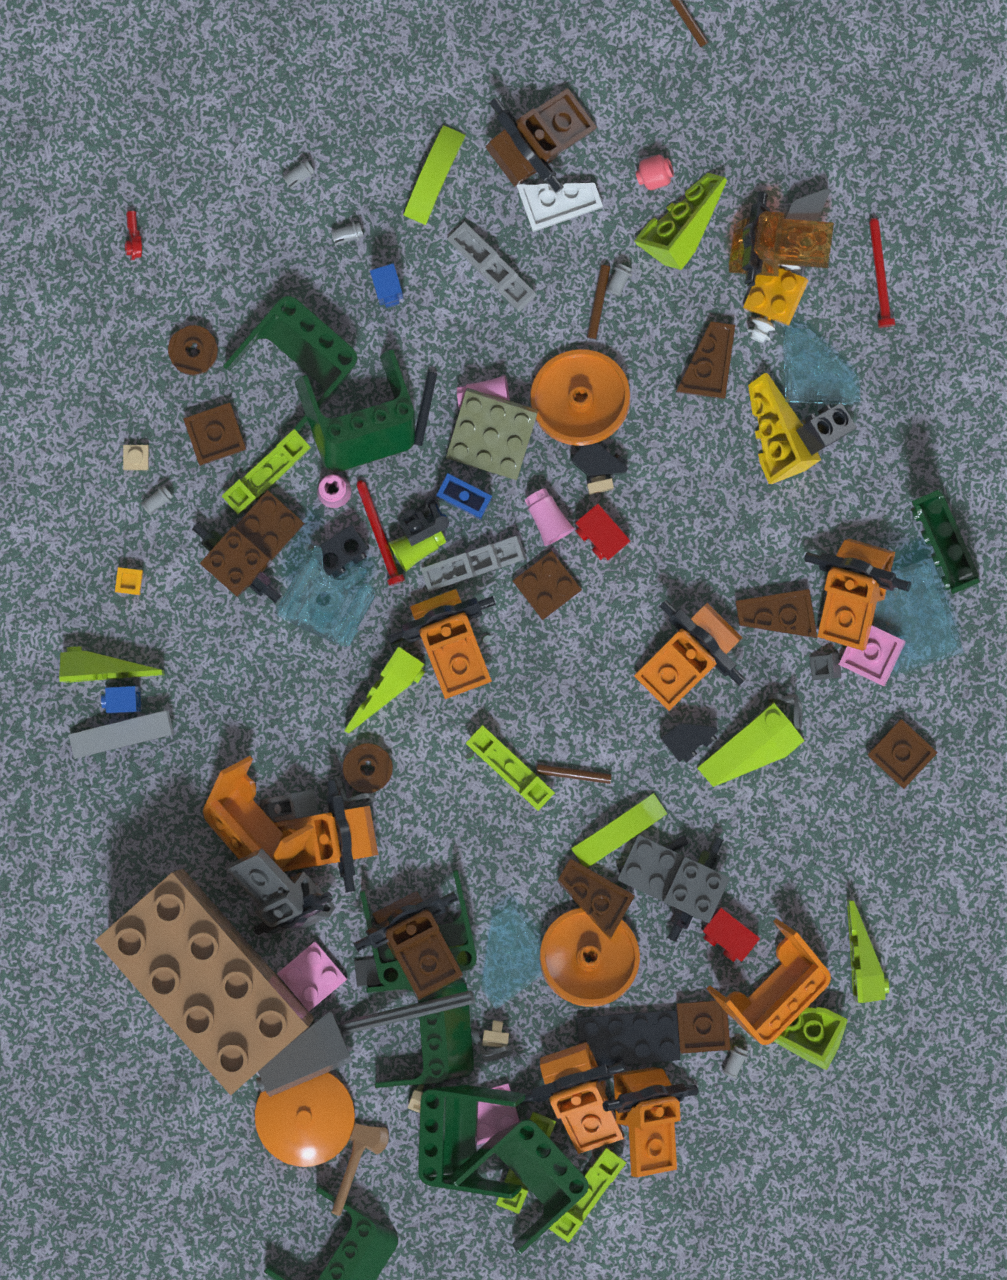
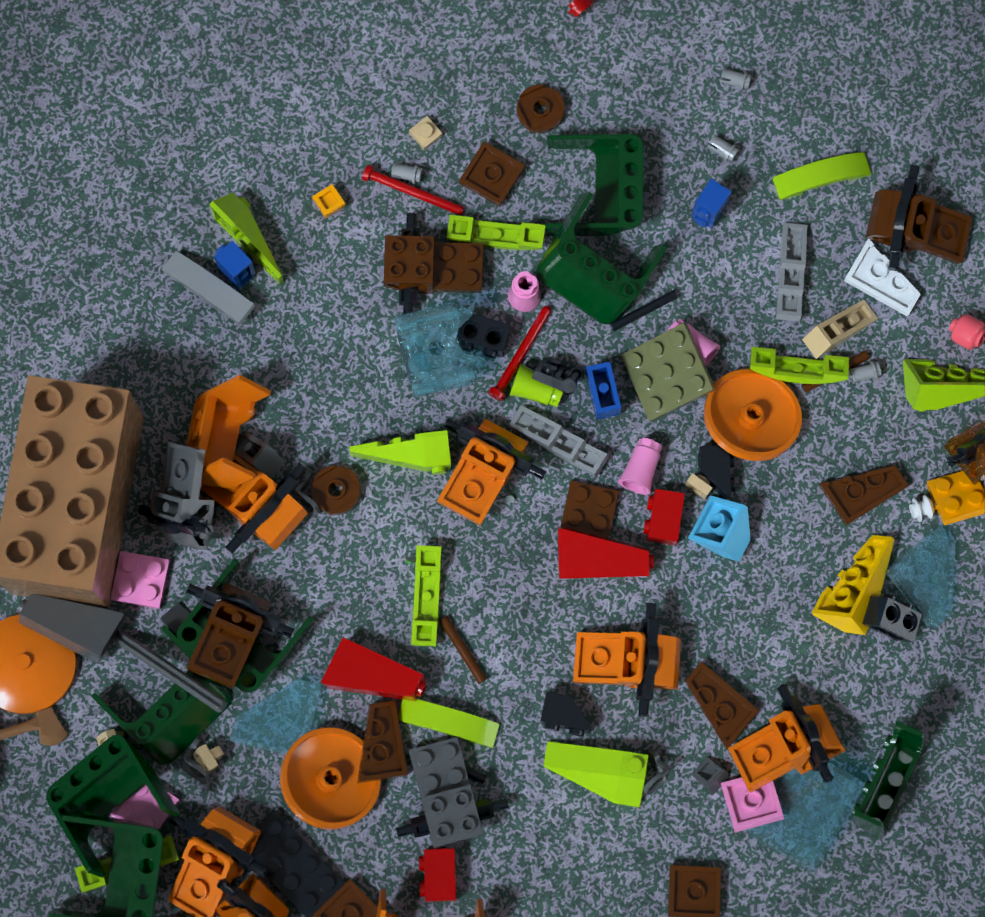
camera: 50 degrees right, 10 degrees down
(165, 513) = (369, 173): none -> red bar
(531, 861) = (370, 673): none -> red slope
(569, 269) = (839, 329): none -> tan slope
(574, 329) = (799, 370): none -> lime slope
(590, 610) = (598, 557): none -> red slope
(647, 495) = (723, 528): none -> medium azure slope

